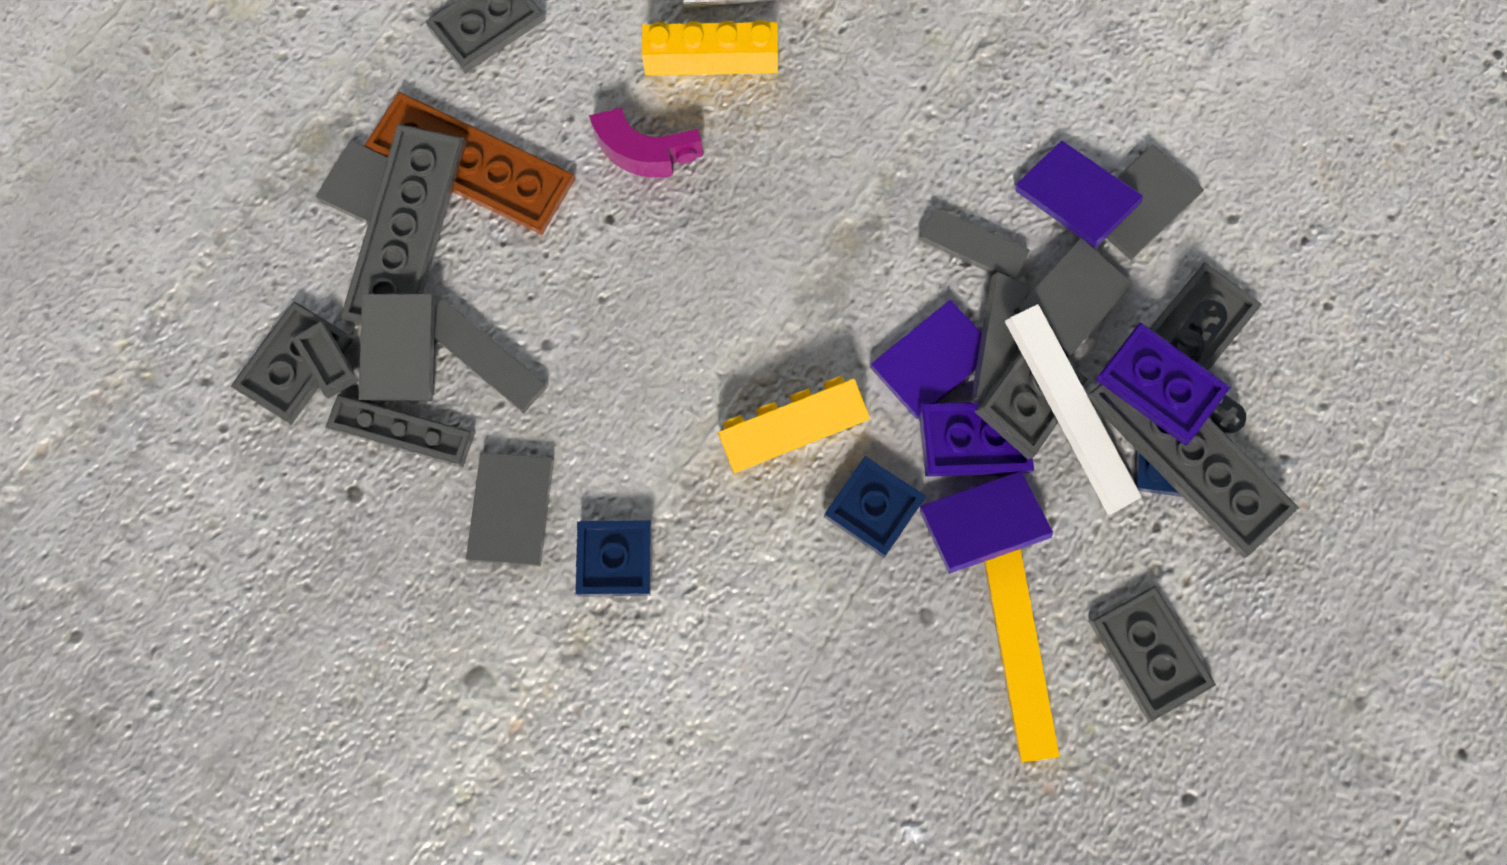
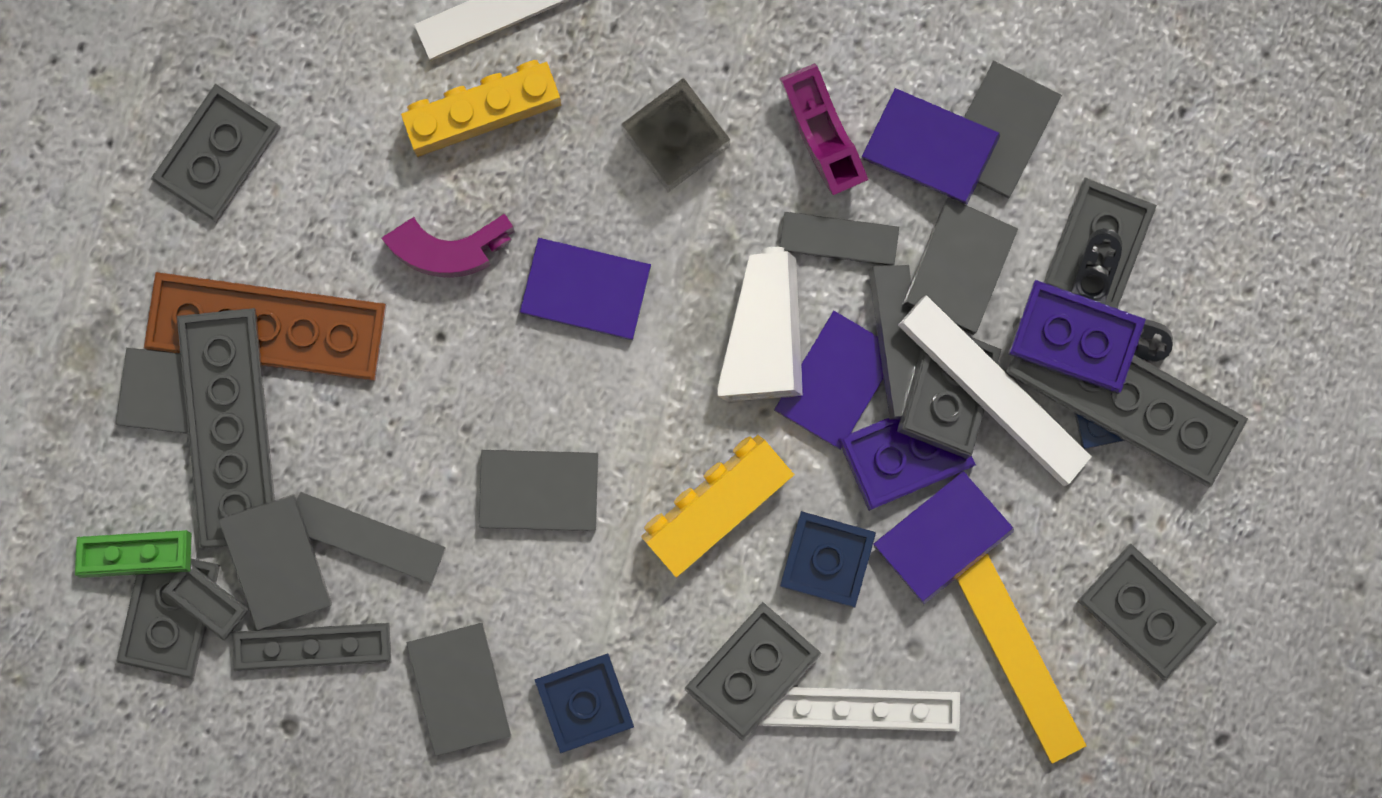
camera: 25 degrees left, 10 degrees up
(282, 301) = (133, 554): none -> bright green tile
(643, 365) = (538, 490): none -> dark grey tile
(744, 216) = (585, 288): none -> dark purple tile
(773, 582) = (752, 671): none -> dark grey tile
(844, 644) = (867, 709): none -> white tile
(864, 114) = (675, 135): none -> clear smoke brick
(883, 300) = (765, 333): none -> white slope
(988, 153) = (822, 130): none -> magenta arch

